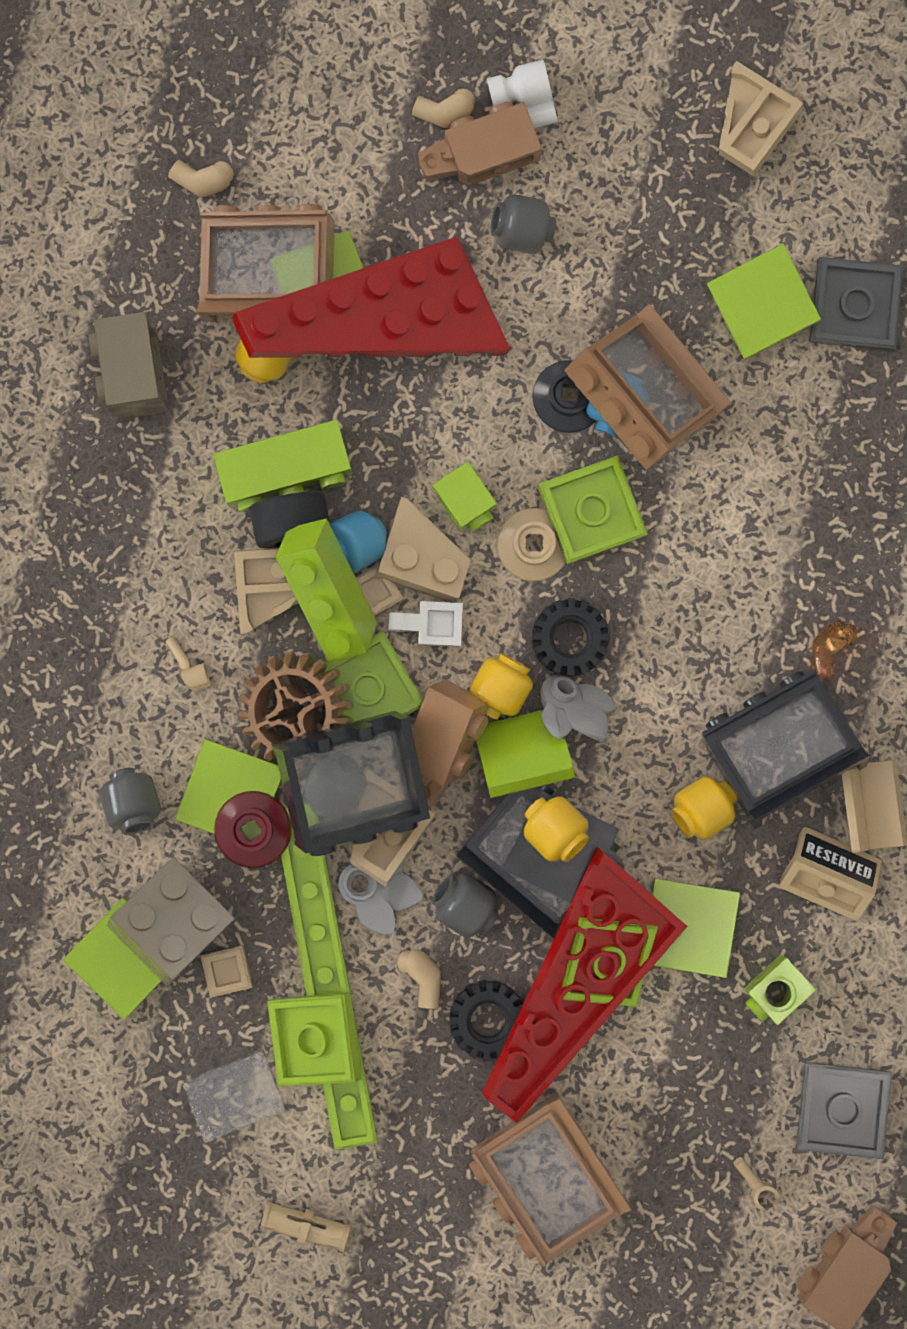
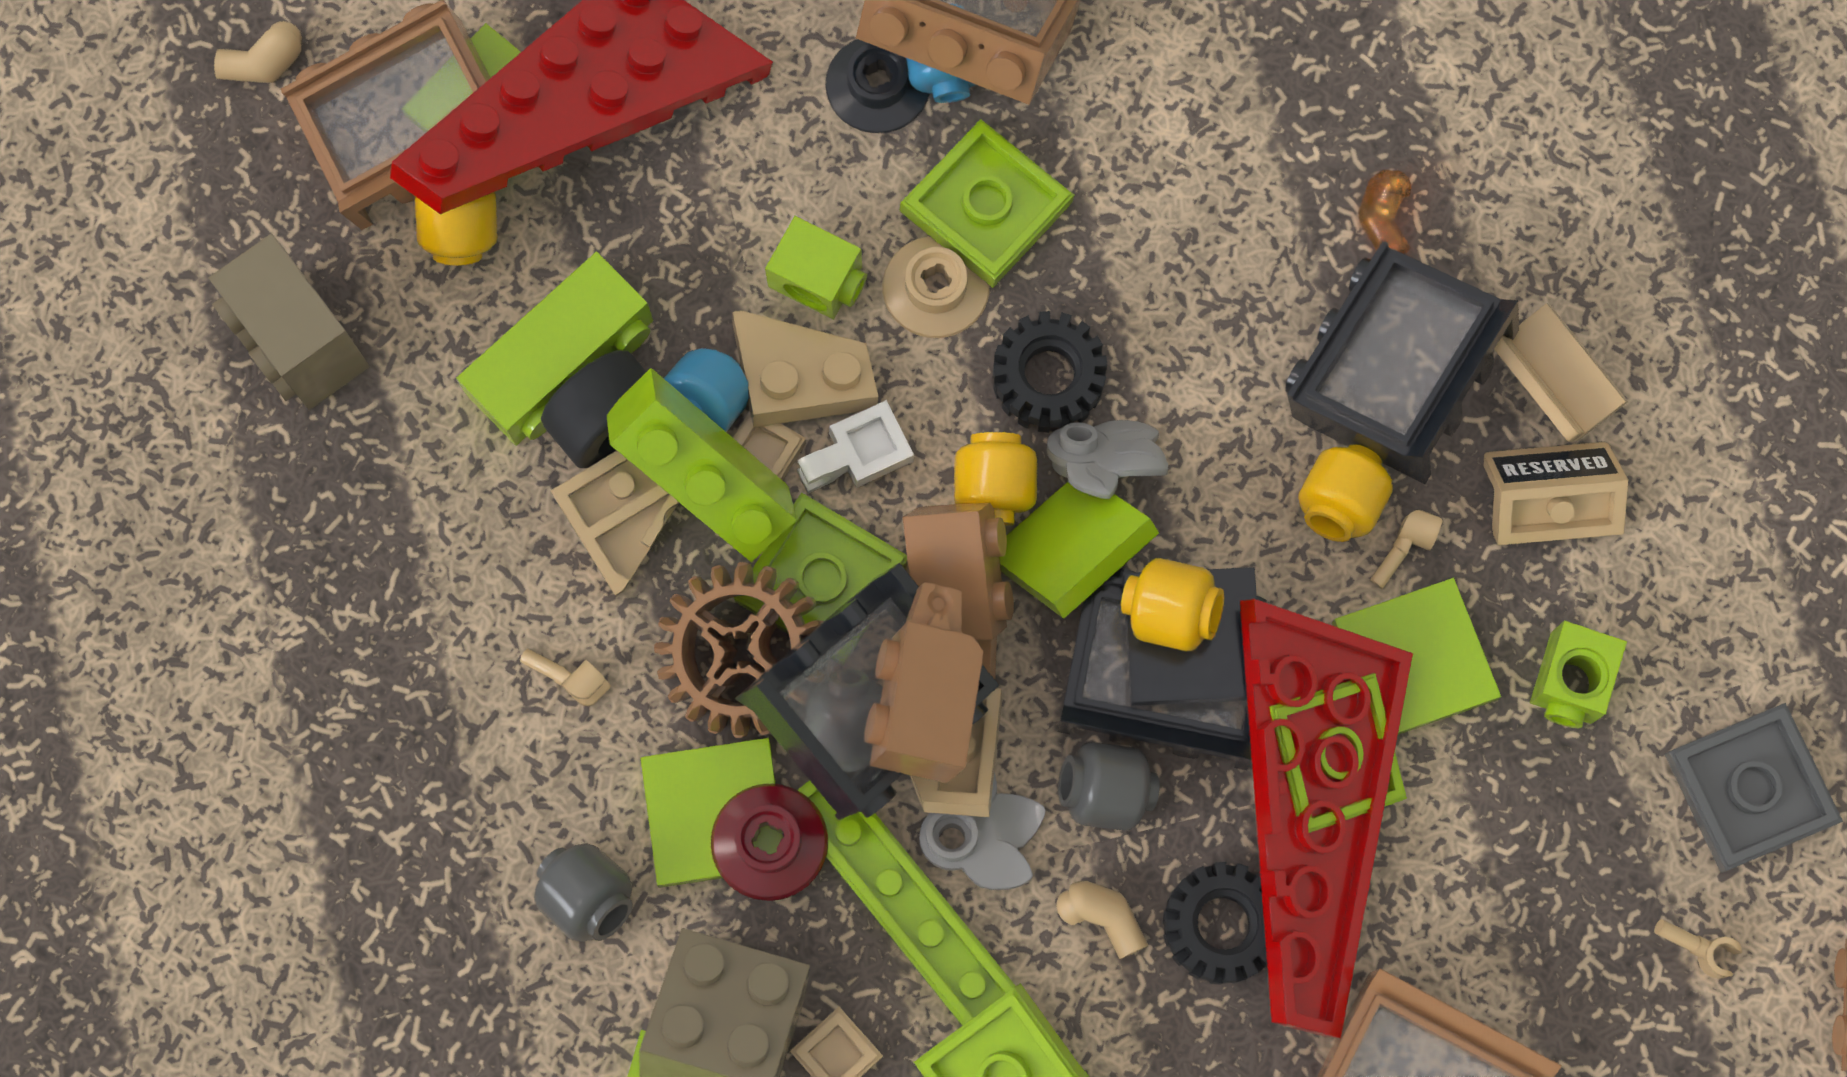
camera: 30 degrees left, 10 degrees down
(382, 803) = (926, 690): none -> medium nougat hinge
(736, 851) = (1417, 529): none -> tan hand

